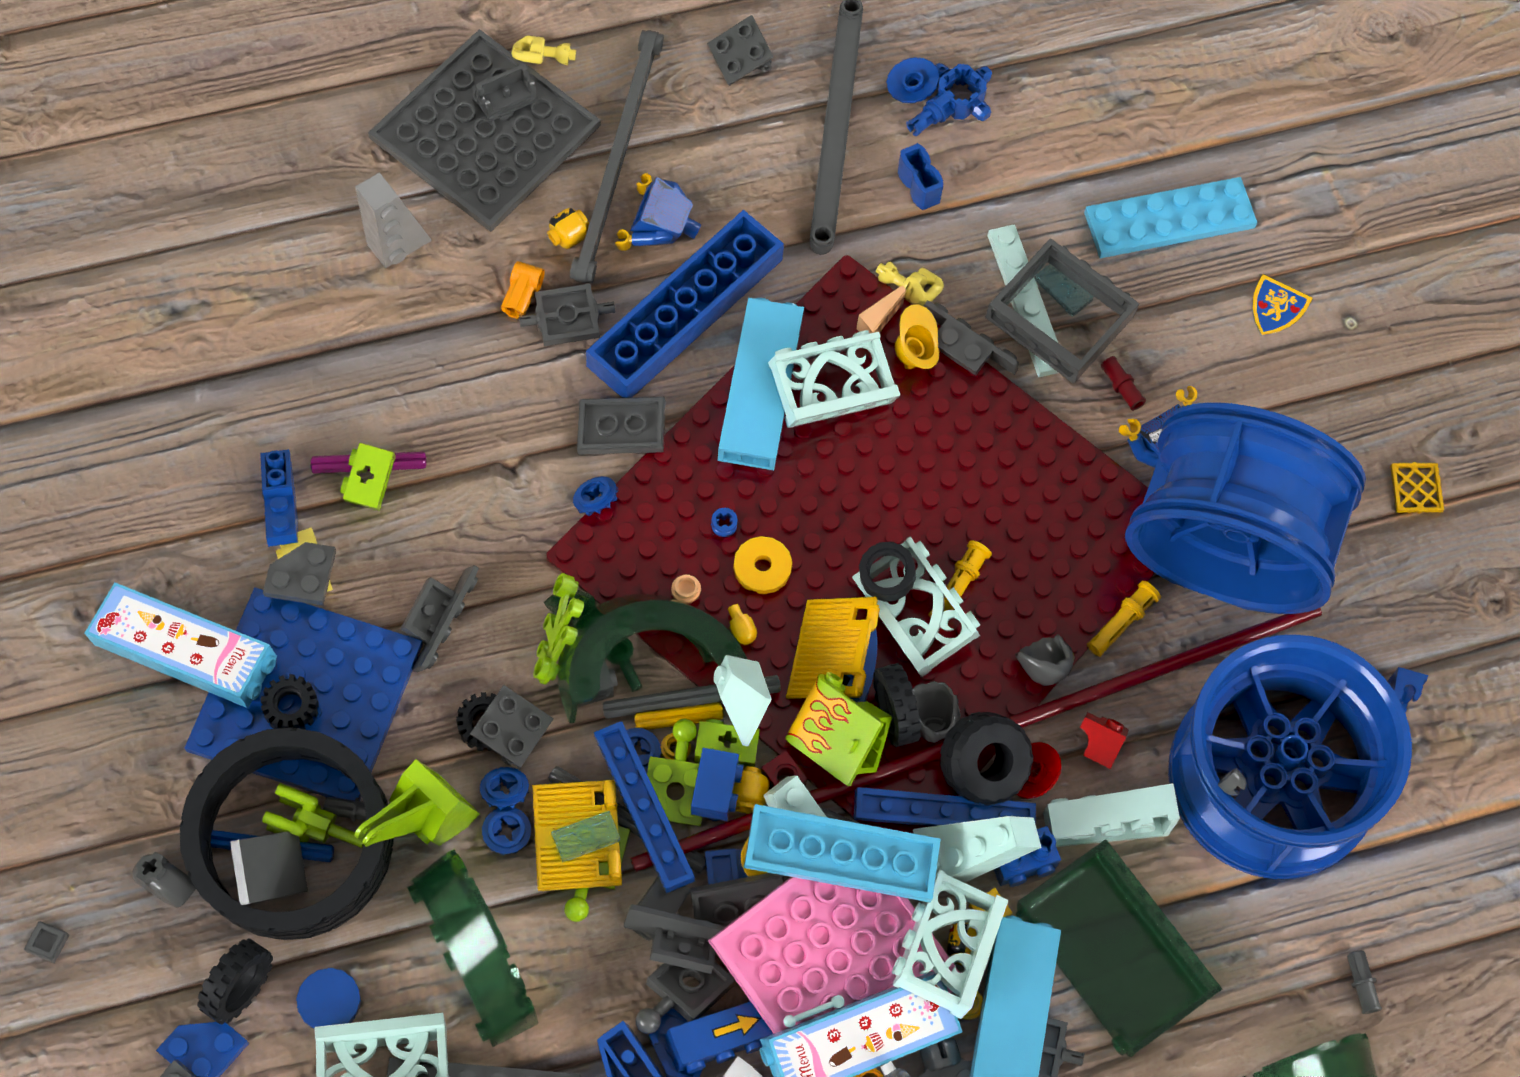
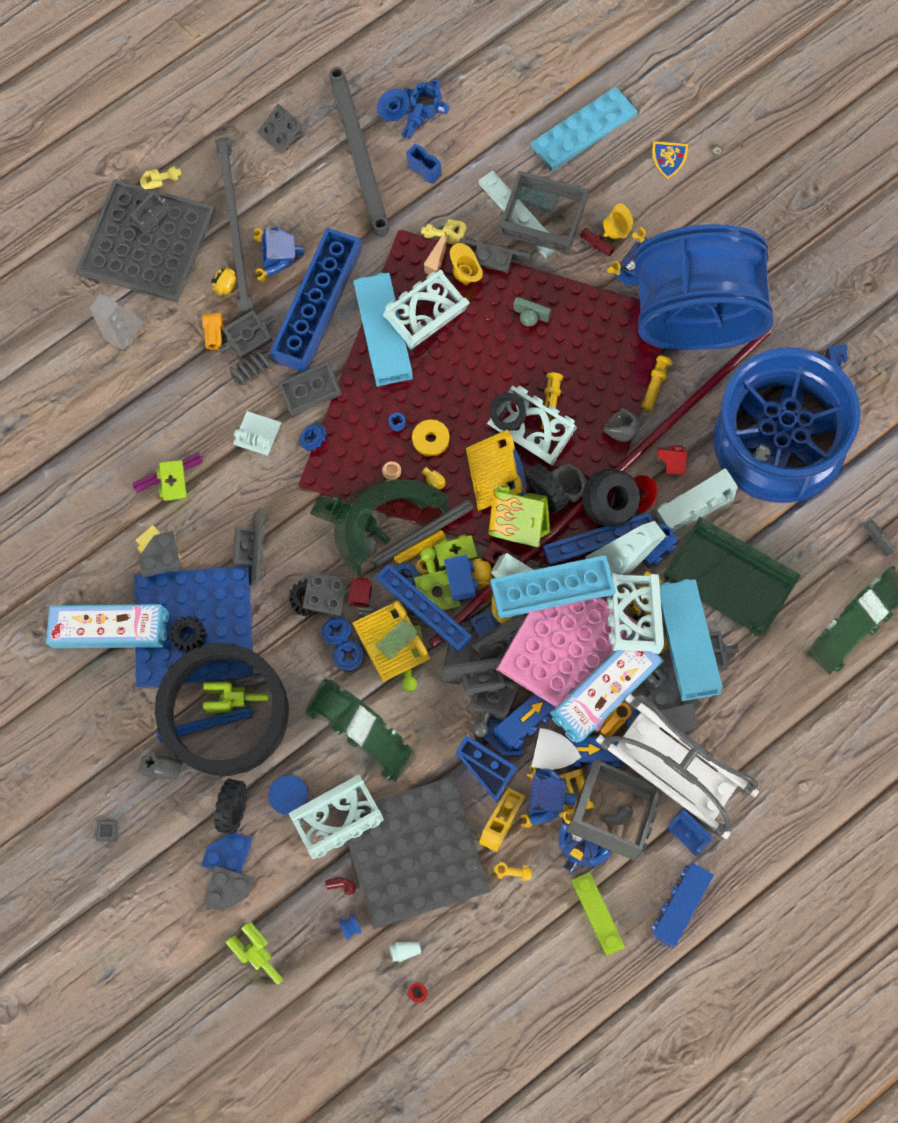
camera: 10 degrees left, 5 degrees up
(268, 867) = (220, 733): dark grey tile -> none
(279, 498) = (124, 515): blue slope -> none
(420, 805) = (294, 662): lime slope -> none
(518, 458) = (256, 433): none -> light aqua hinge
(548, 363) = (249, 368): none -> dark grey piece
(557, 629) = (327, 525): lime plant -> none
(564, 746) = (360, 592): none -> dark red brick
(743, 694) = (454, 518): light aqua slope -> none
(836, 1002) = (584, 673): light aqua hinge -> none
(984, 443) = (531, 312): none -> sand green tile
(1164, 367) = (618, 222): none -> yellow piece
(1414, 469) = (784, 240): yellow window -> none

